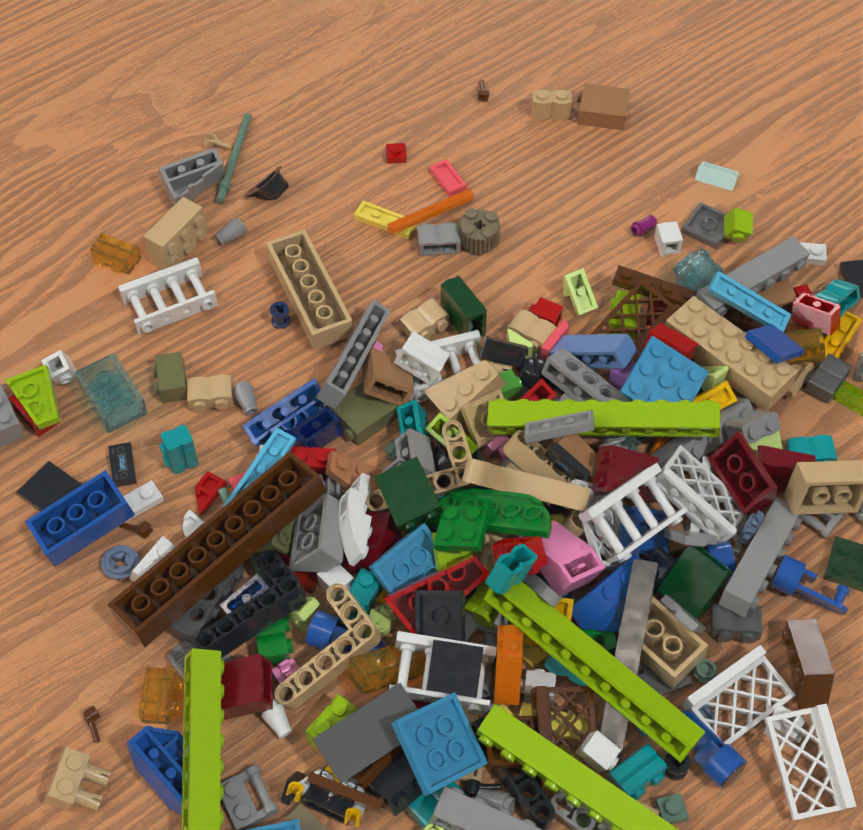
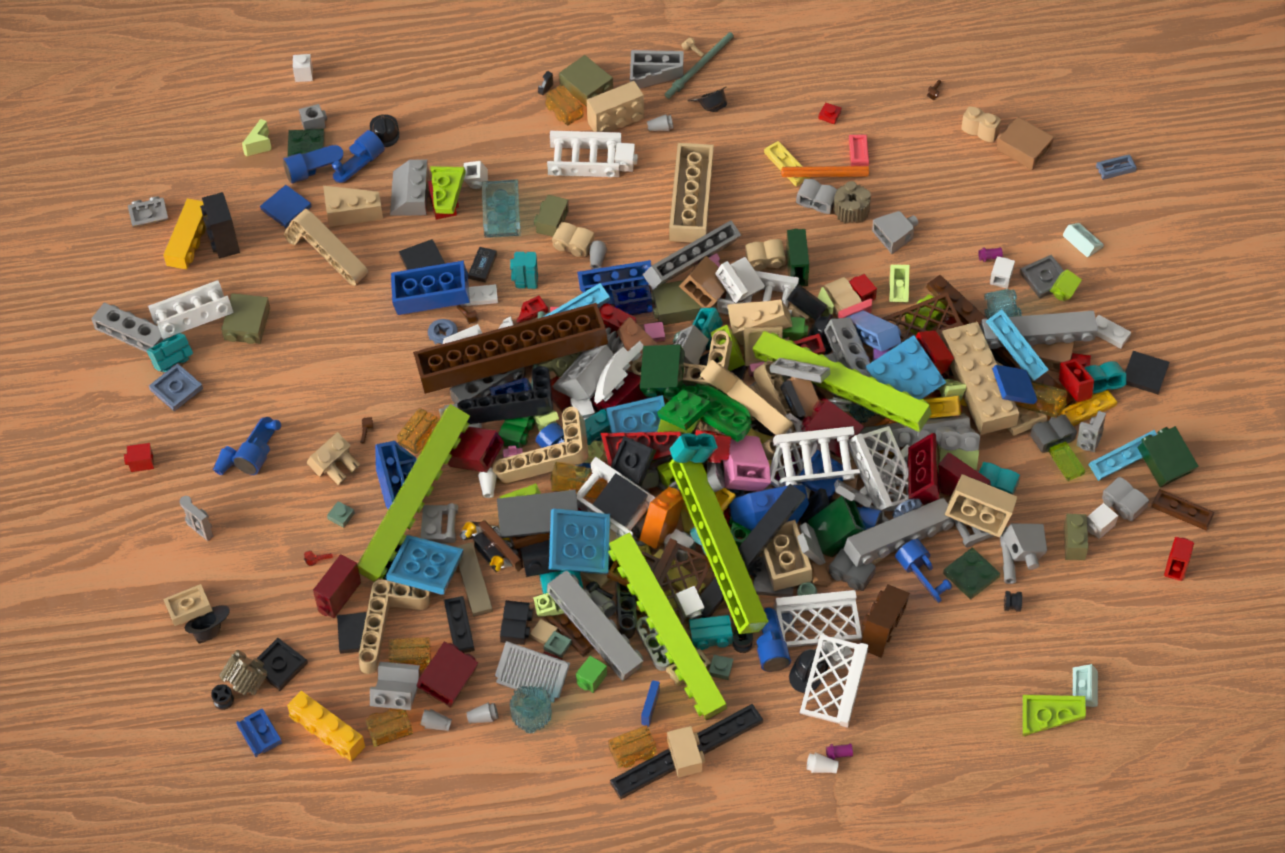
camera: 30 degrees right, 0 degrees up
(83, 239) = (547, 83): none -> black tile
(125, 218) = (585, 79): none -> olive brick
(214, 279) = (626, 156): none -> white brick
(281, 315) = (662, 199): dark blue bush -> none
(359, 452) = (655, 331): none -> bright pink tile
(537, 241) = (894, 230): none -> light grey torso
(701, 98) = (1117, 168): none -> sand blue tile
(761, 764) = (801, 671): none -> black piece

